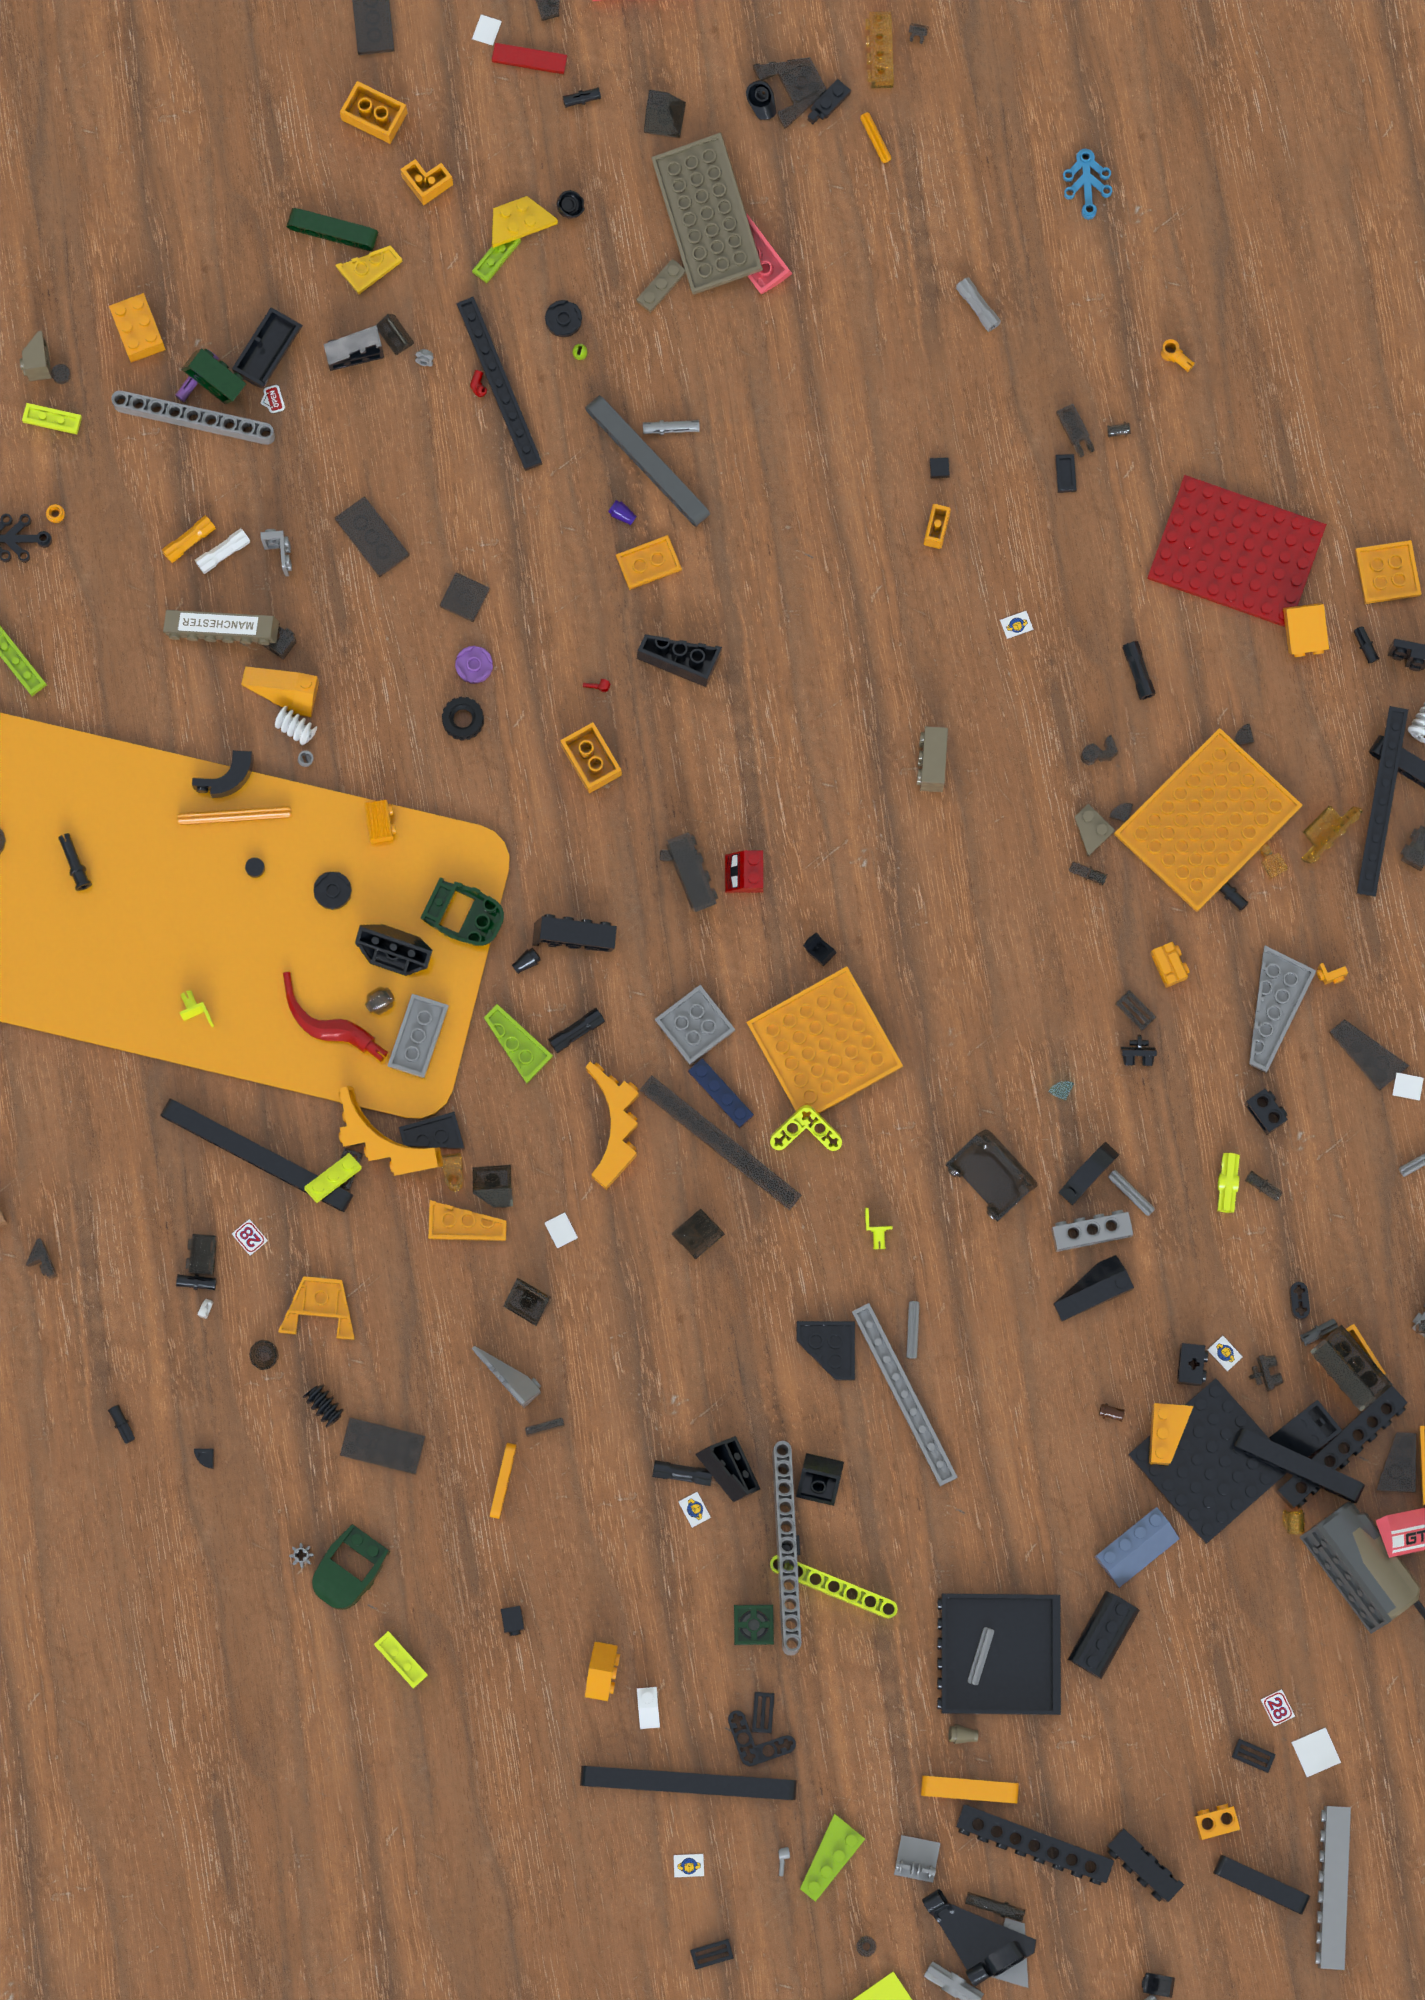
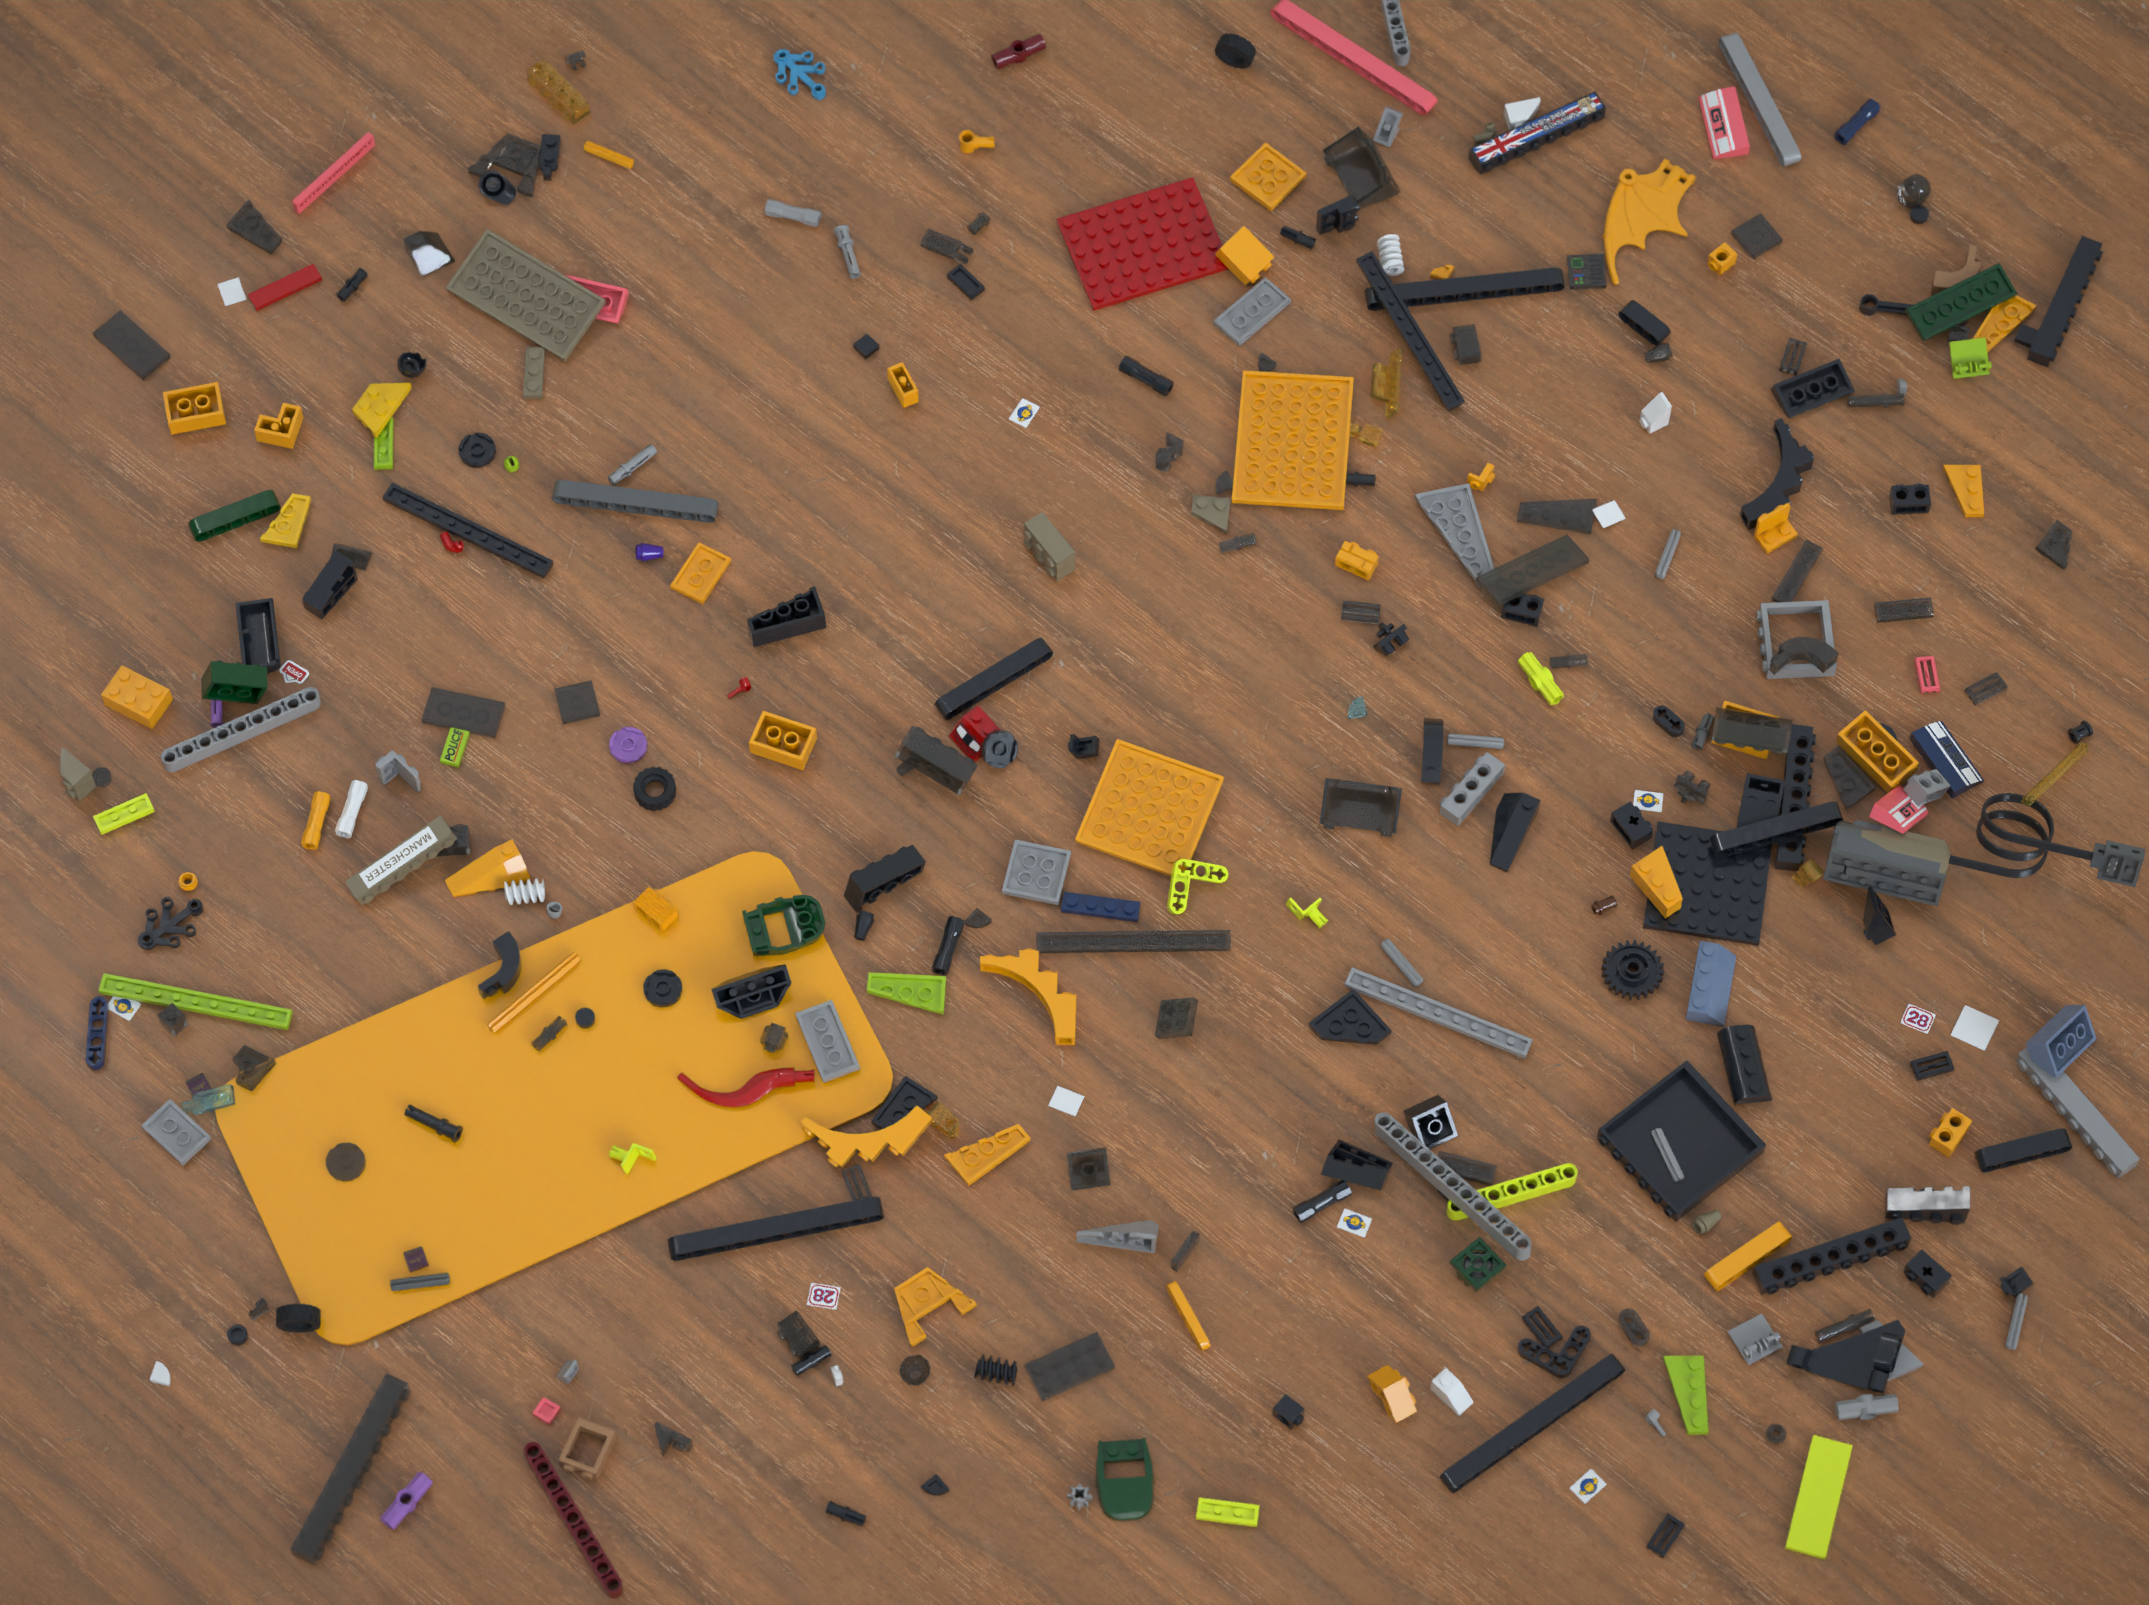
camera: 40 degrees left, 15 degrees down
(13, 1142) = (568, 1371): none -> light grey slope
(217, 858) = (549, 1033): none -> clear smoke pin
(333, 1177) = (853, 1194): neon yellow plate -> none
(342, 560) = (454, 747): none -> lime tile
(424, 357) = (391, 554): light grey plate -> none
(493, 1185) = (986, 1104): clear smoke slope -> none
(618, 1026) = (977, 919): none -> clear smoke tile
(750, 899) = (999, 749): none -> black tile
(798, 835) = (993, 678): none -> black beam
(815, 1538) = (1469, 1168): none -> clear smoke plate
(832, 1772) = (1634, 1328): none -> clear smoke plate
(996, 365) = (845, 244): none -> light grey pin
(1075, 1495) = (1632, 983): none -> black gear
(1102, 1928) = (1923, 1264): none -> black brick
(1273, 680) = (1252, 311): none -> light grey tile
(1291, 303) = (1027, 47): none -> dark red piece
(1300, 1086) = (1532, 570): none -> clear smoke tile
(1315, 1603) = (1877, 919): none -> black slope
(1370, 1824) = (2062, 1039): none -> sand blue slope

